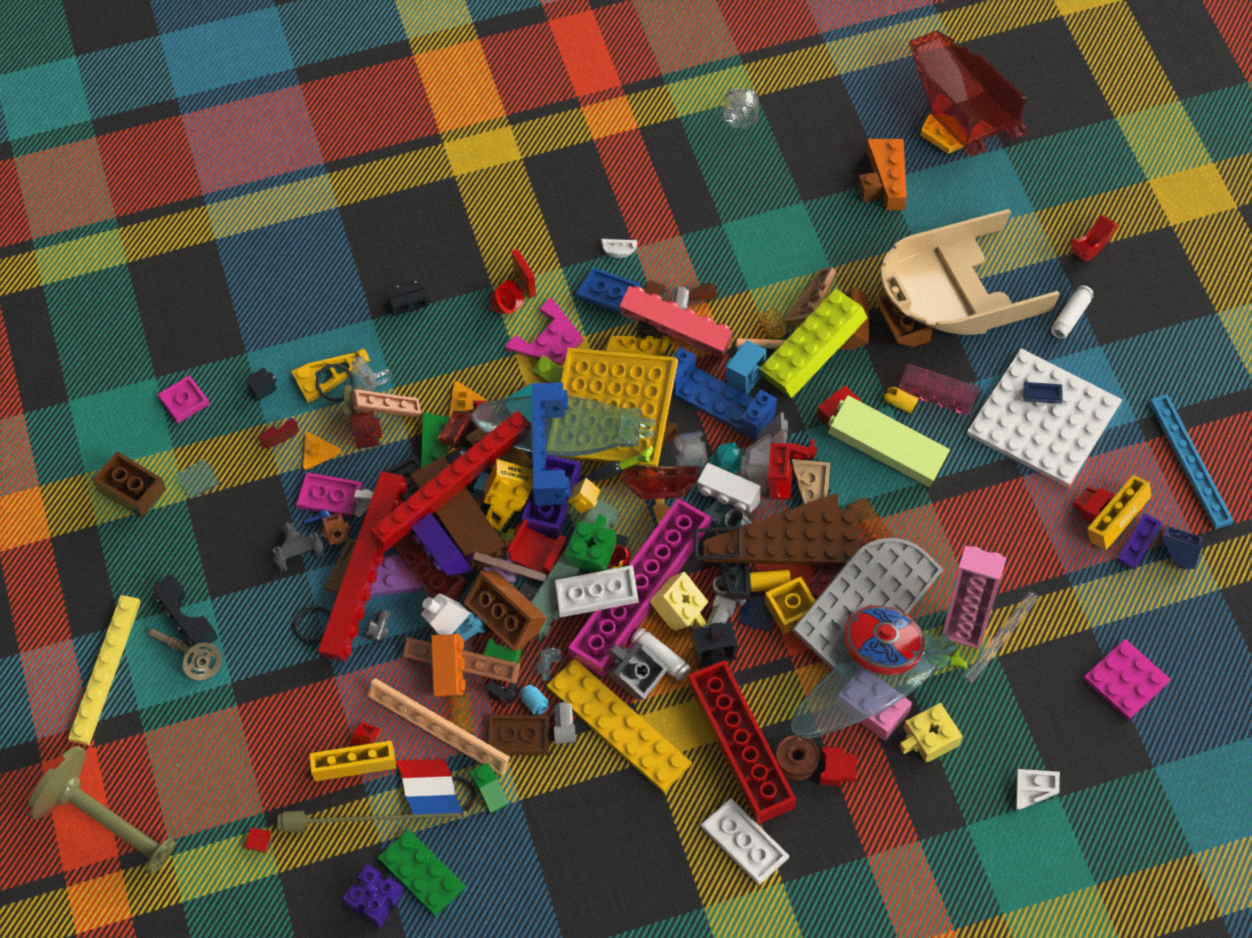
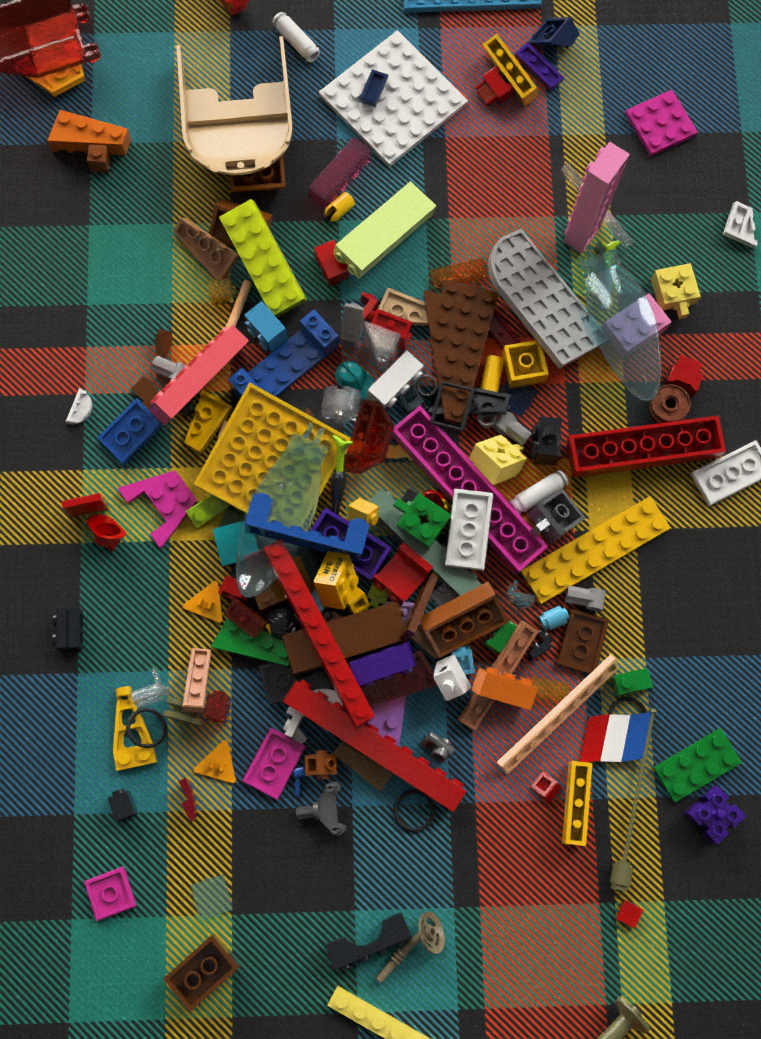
camera: 80 degrees left, 15 degrees up
(883, 640) = (589, 295): dish -> none

